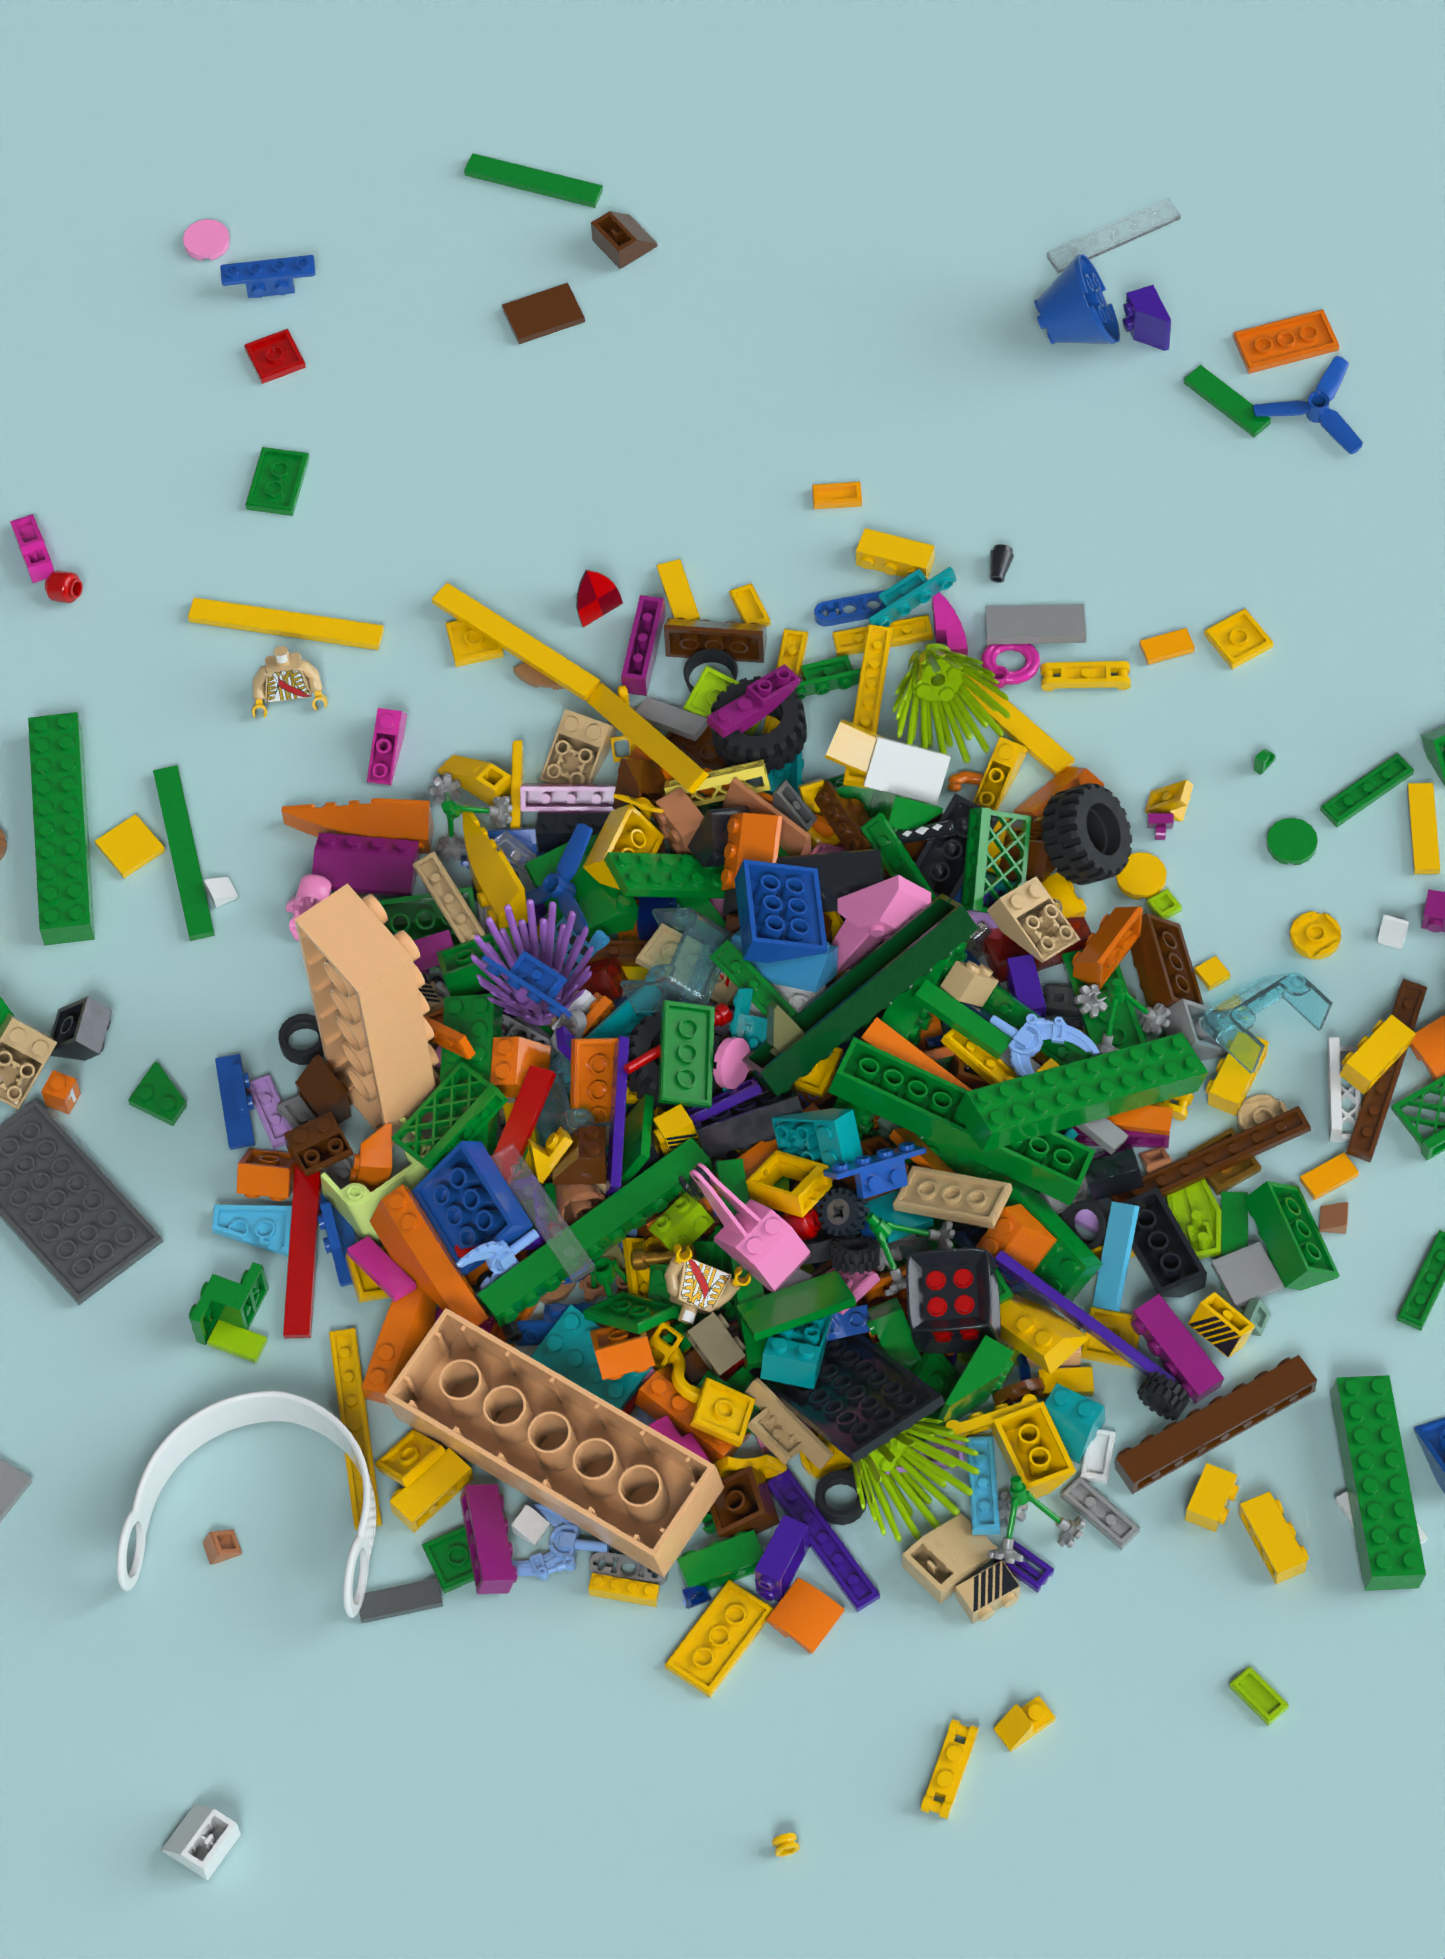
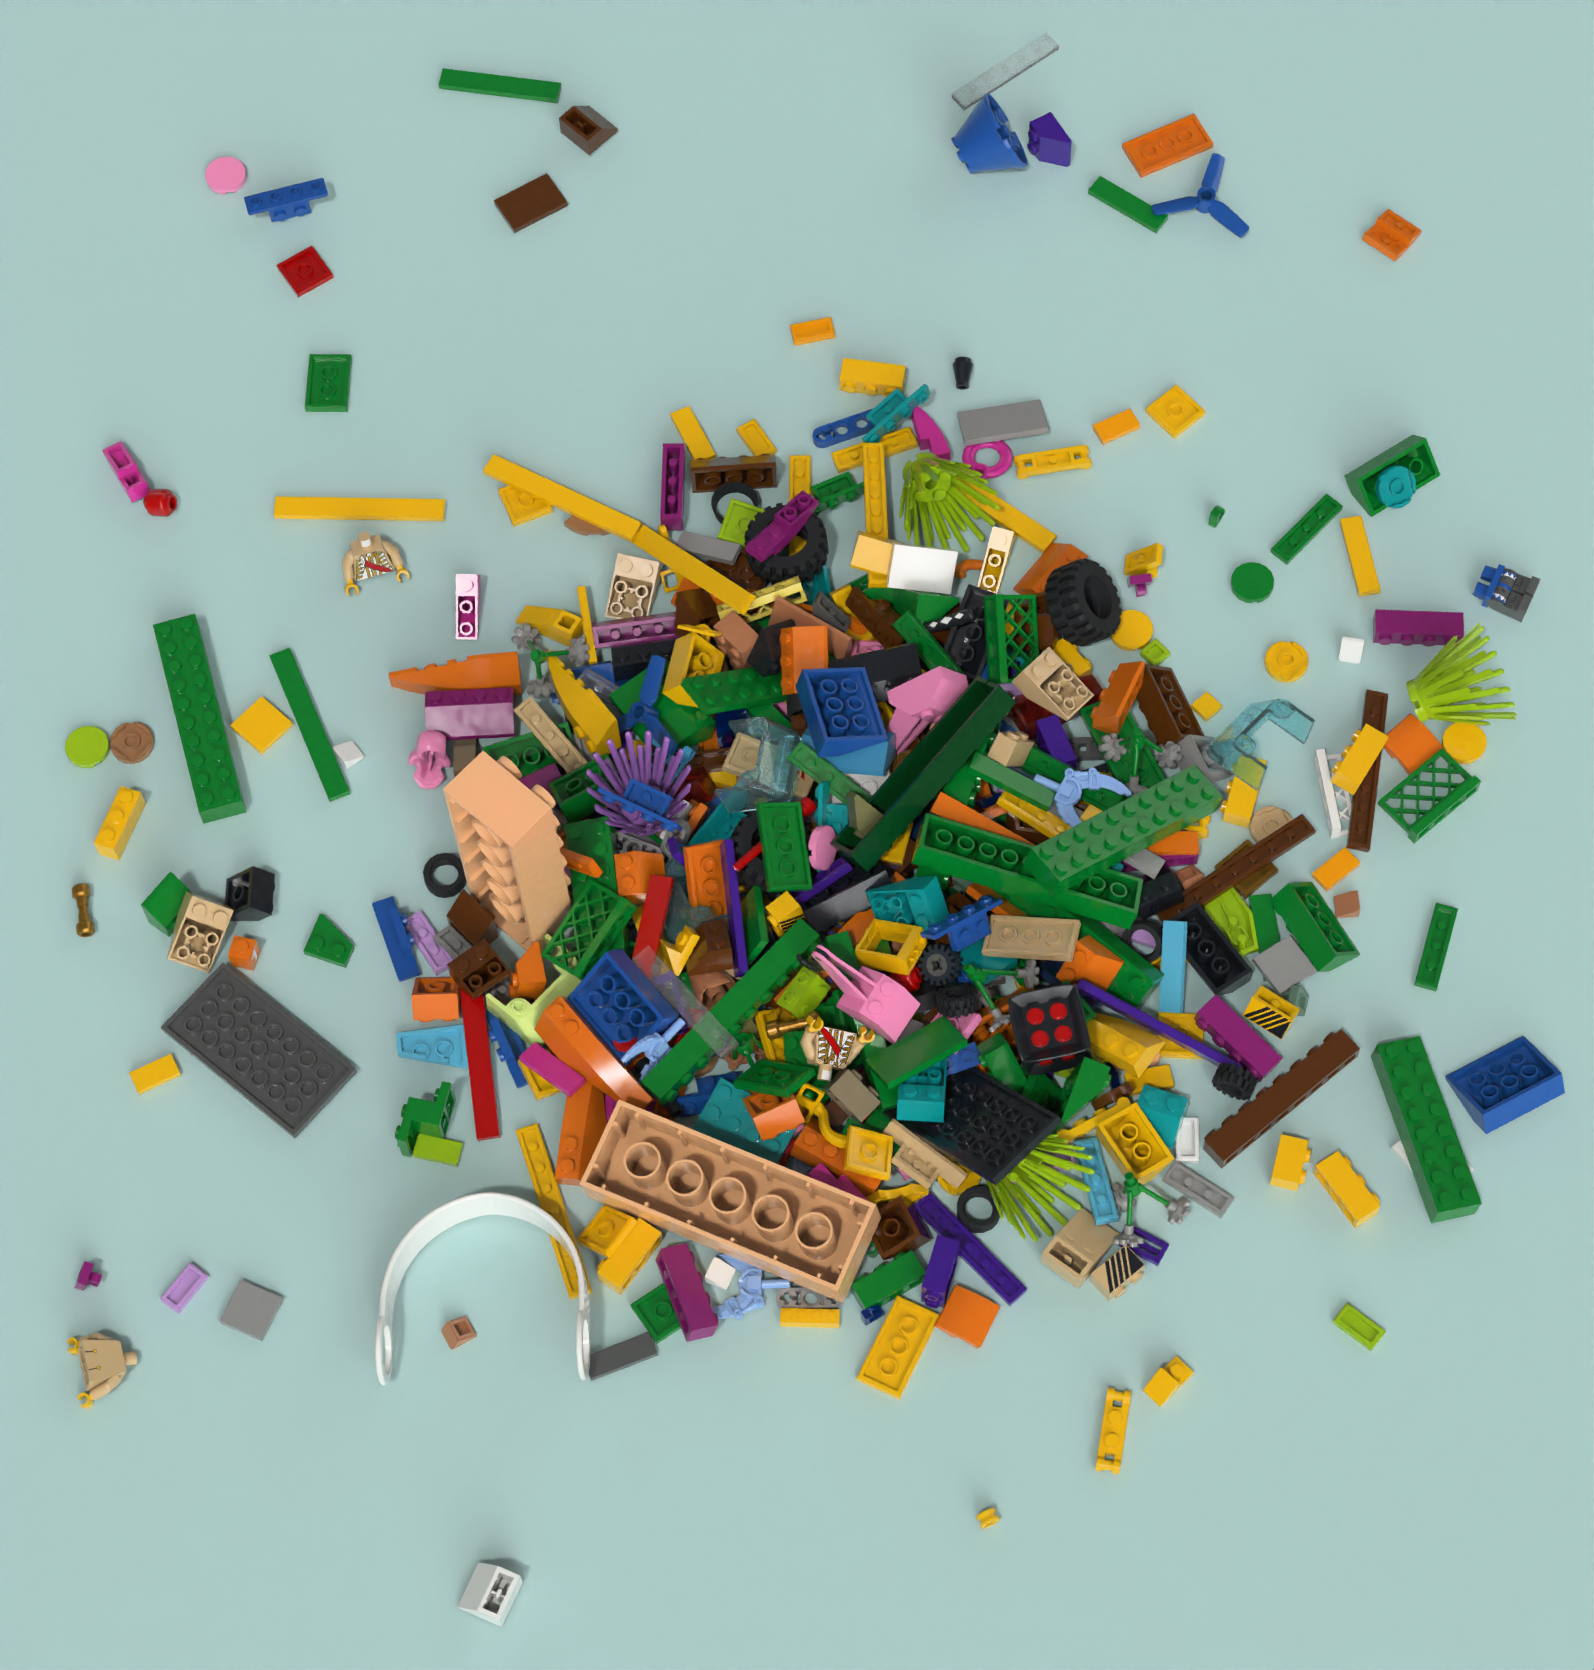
camera: 10 degrees left, 5 degrees up
(596, 597) = (624, 449): shield -> none

